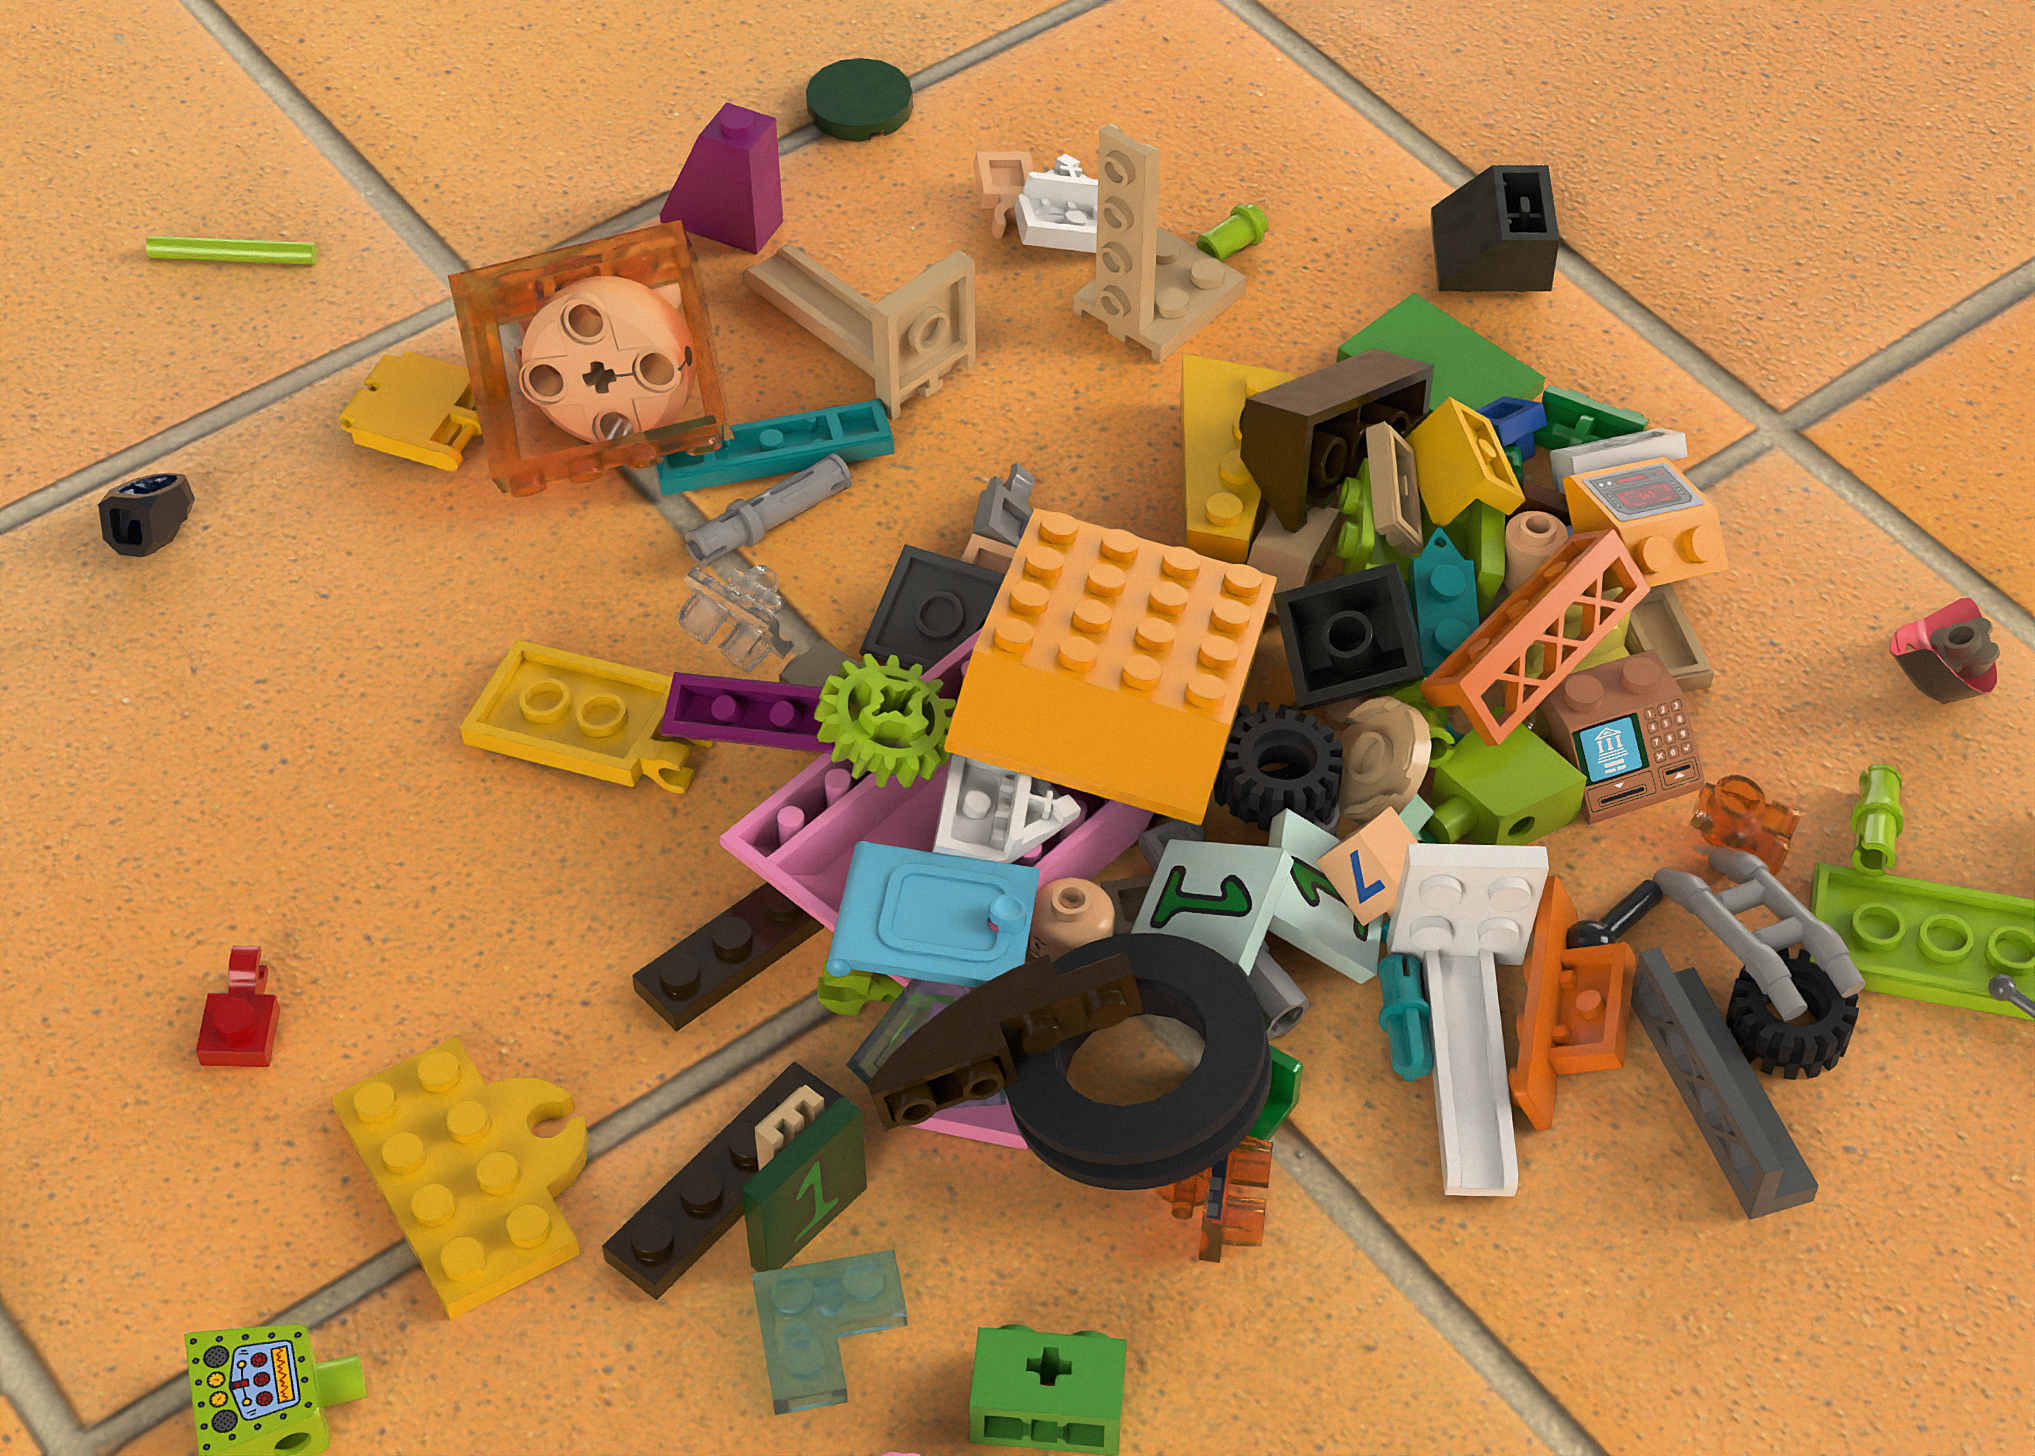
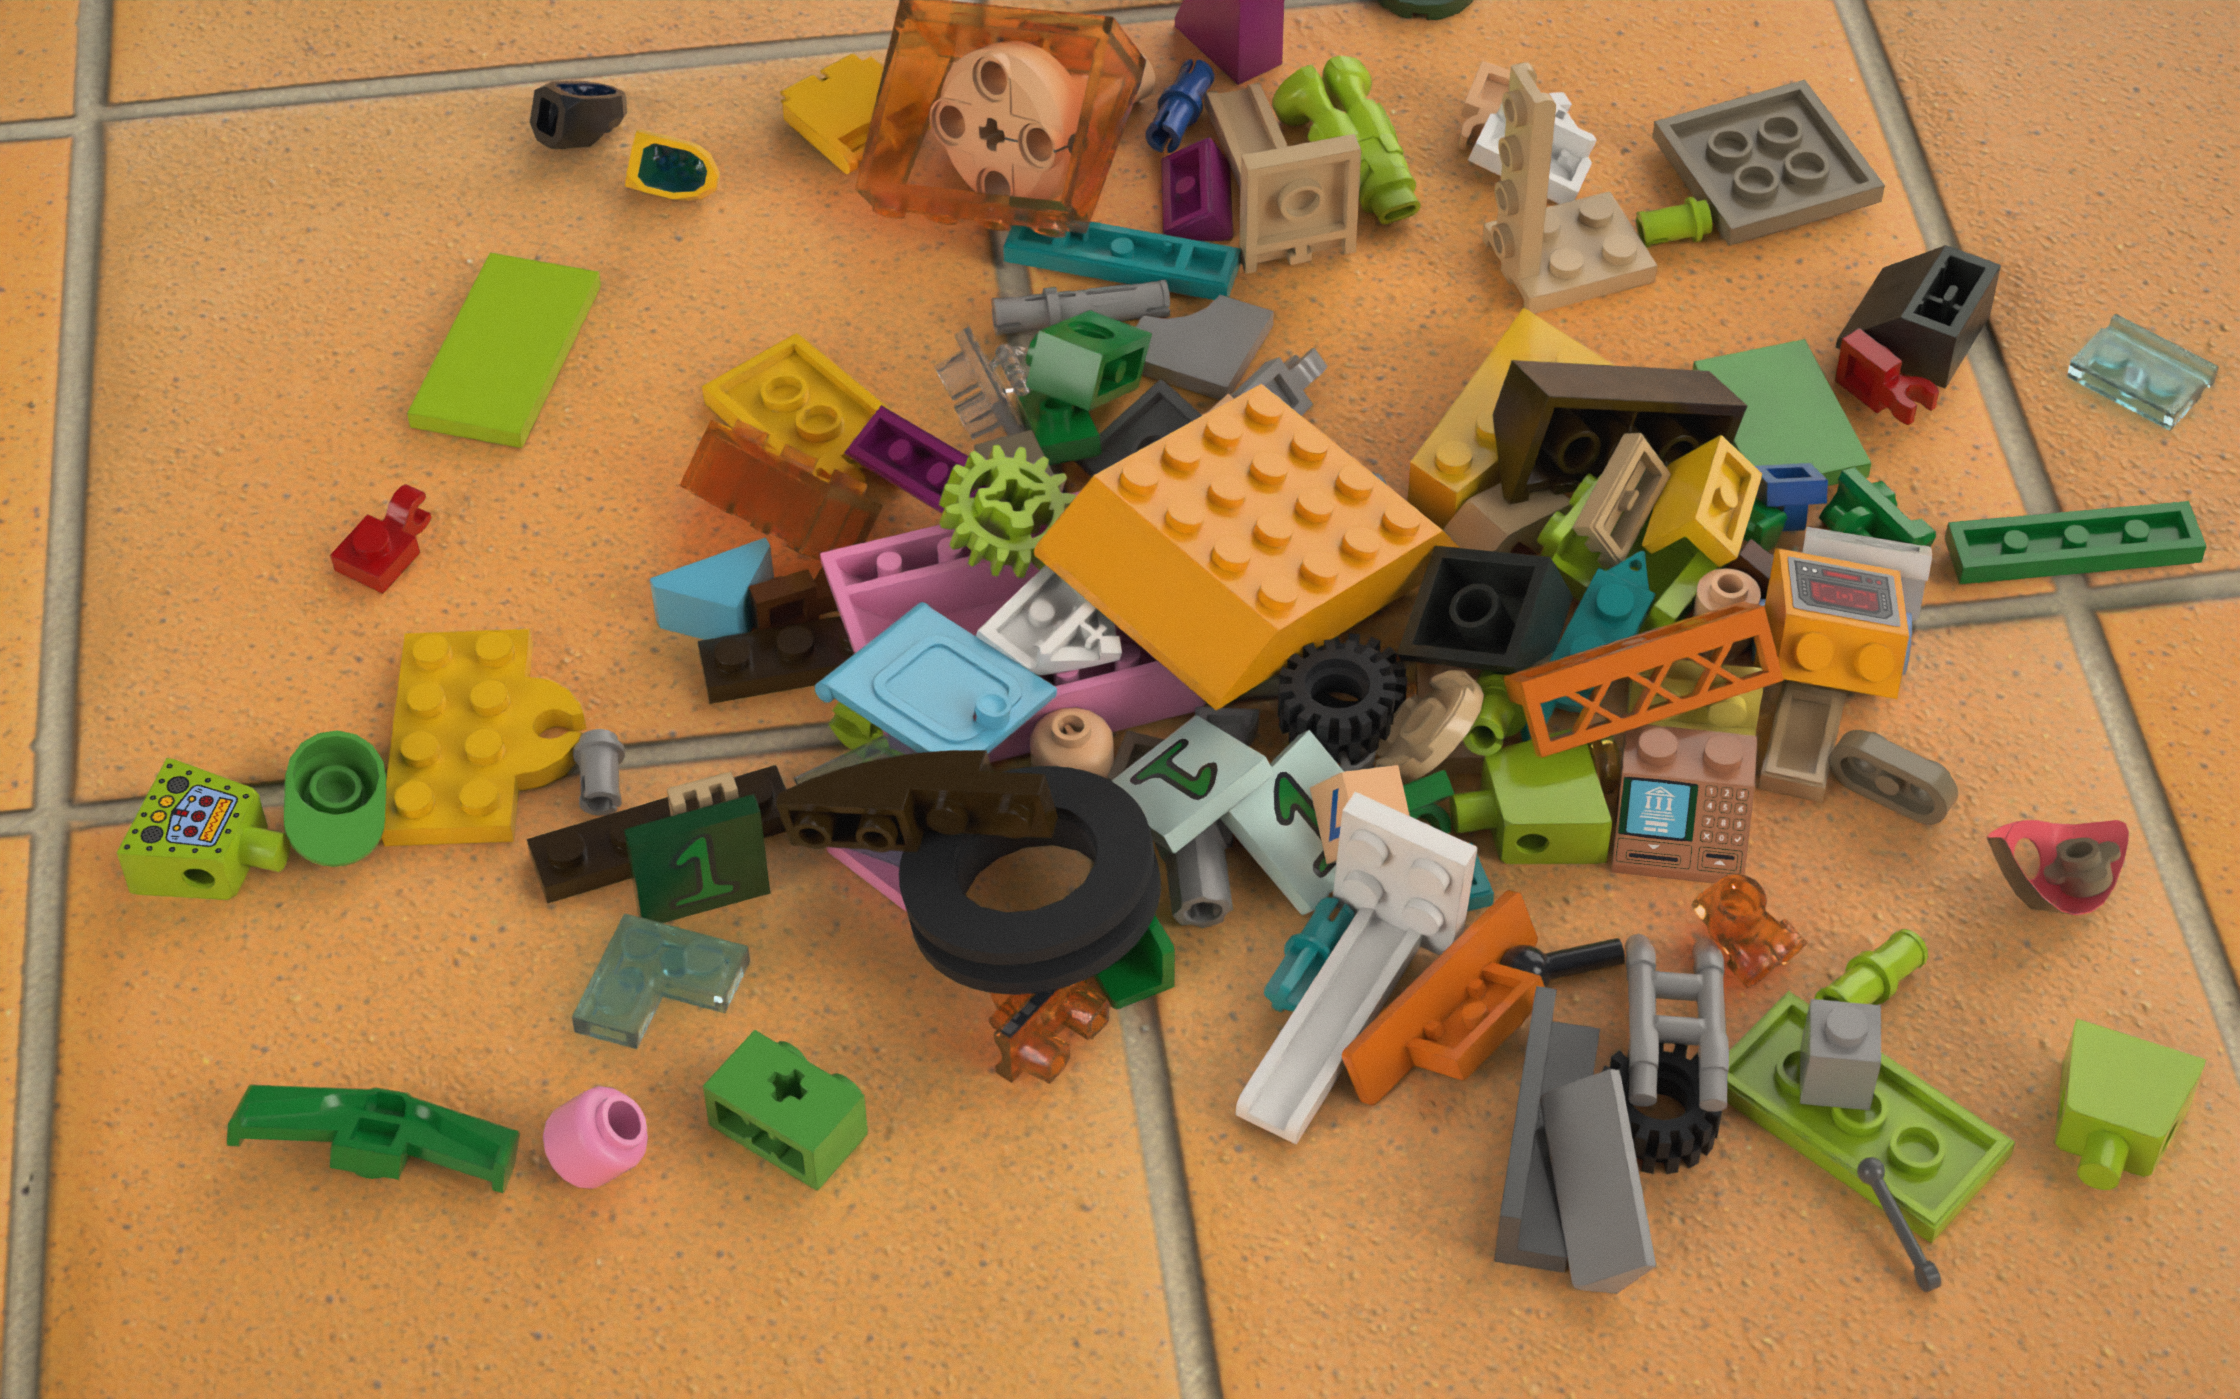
camera: 30 degrees right, 0 degrees up
(230, 773) = (504, 350): none -> lime tile
(280, 529) = (670, 167): none -> rock
(386, 1295) = (335, 799): none -> bright green cap
(617, 1133) = (599, 760): none -> light grey pin
(619, 925) = (713, 593): none -> medium azure slope
(622, 795) = (779, 490): none -> clear orange wedge
(703, 893) = (790, 600): none -> reddish brown plate
(726, 291) = (1179, 106): none -> blue pin
(793, 366) = (1197, 193): none -> magenta slope
(822, 553) = (1087, 360): none -> green brick
(827, 615) = (1060, 428): none -> green plate
(898, 258) = (1384, 175): none -> lime piece
(900, 506) = (1208, 347): none -> light grey tile
(1272, 152) = (1768, 162): none -> dark tan plate
(1495, 303) = (1875, 378): none -> red plate
(1691, 217) = (2142, 372): none -> clear light blue plate
(1752, 378) = (2074, 542): none -> green plate
(1764, 638) = (1893, 776): none -> dark tan plate
(1809, 1104) = (1597, 1183): none -> light grey slope
(1918, 896) = (1840, 1054): none -> light grey brick

